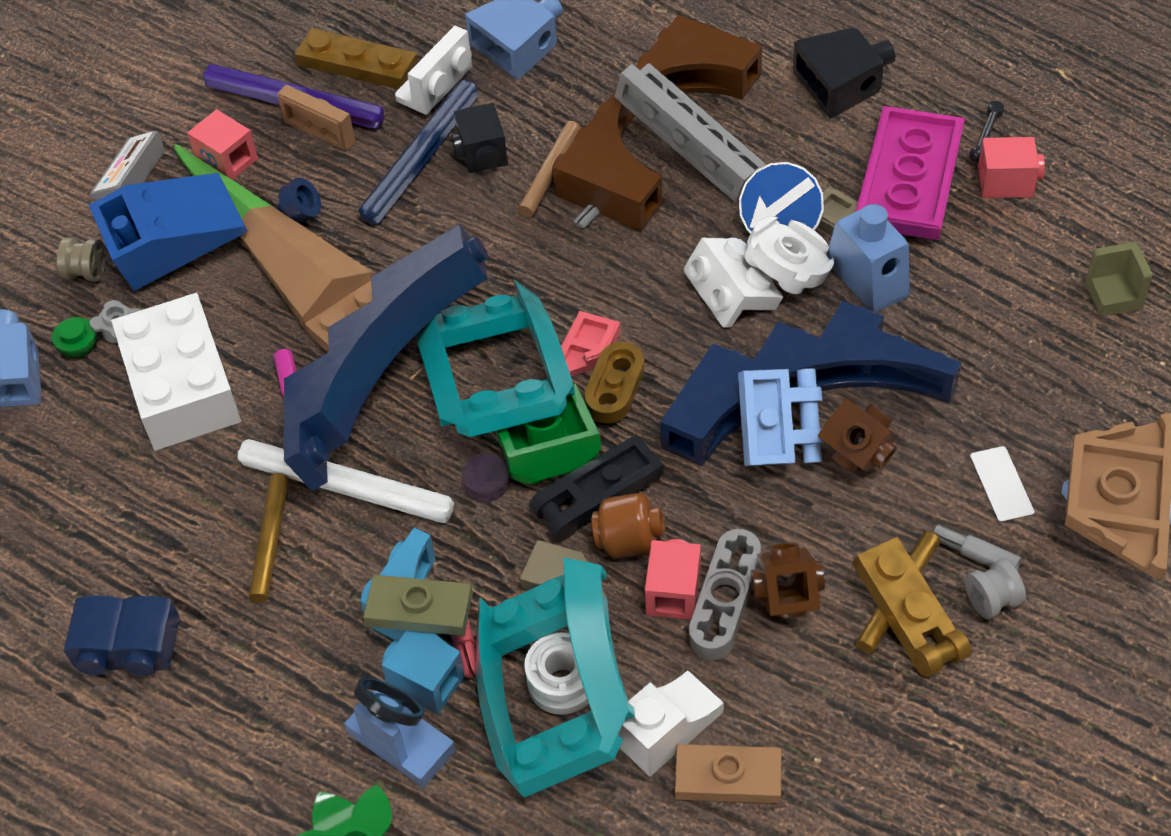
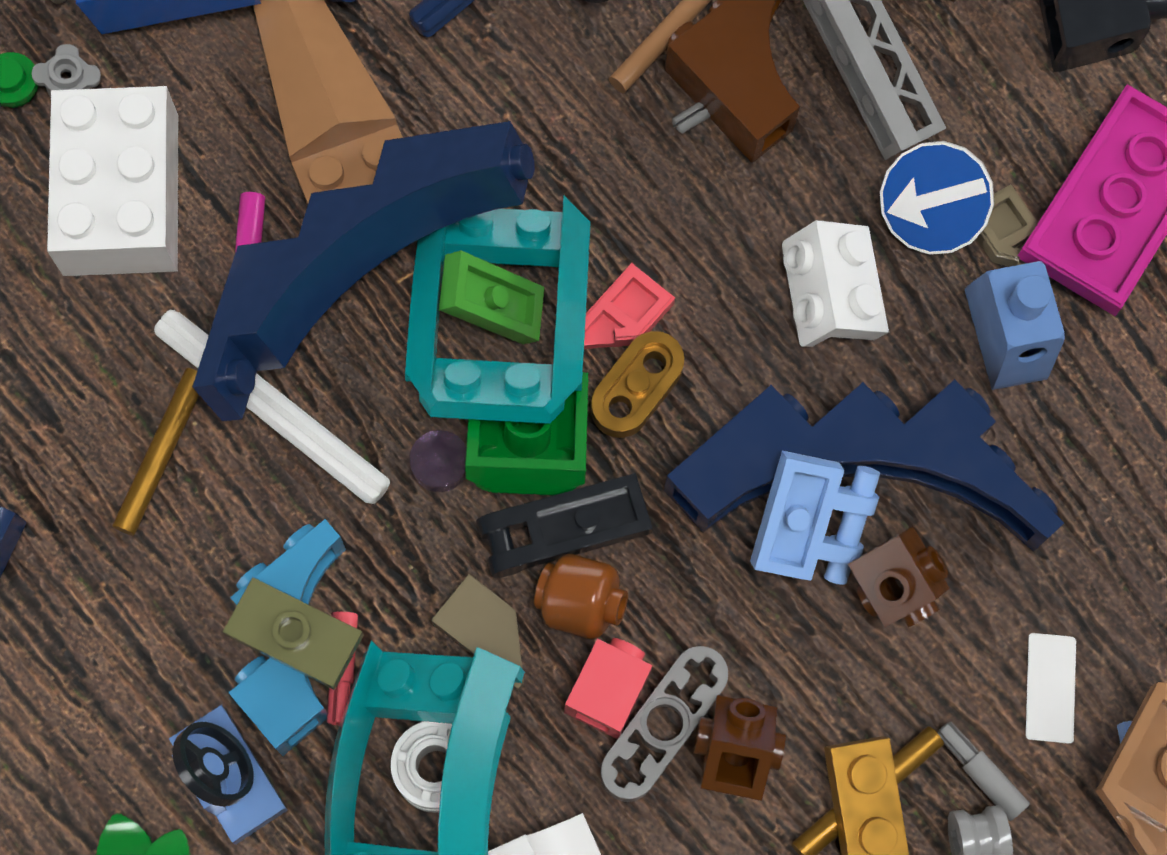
camera: 10 degrees right, 20 degrees up
(485, 353) = (491, 297): none -> bright green plate
(789, 254) = (896, 293): white plate -> none

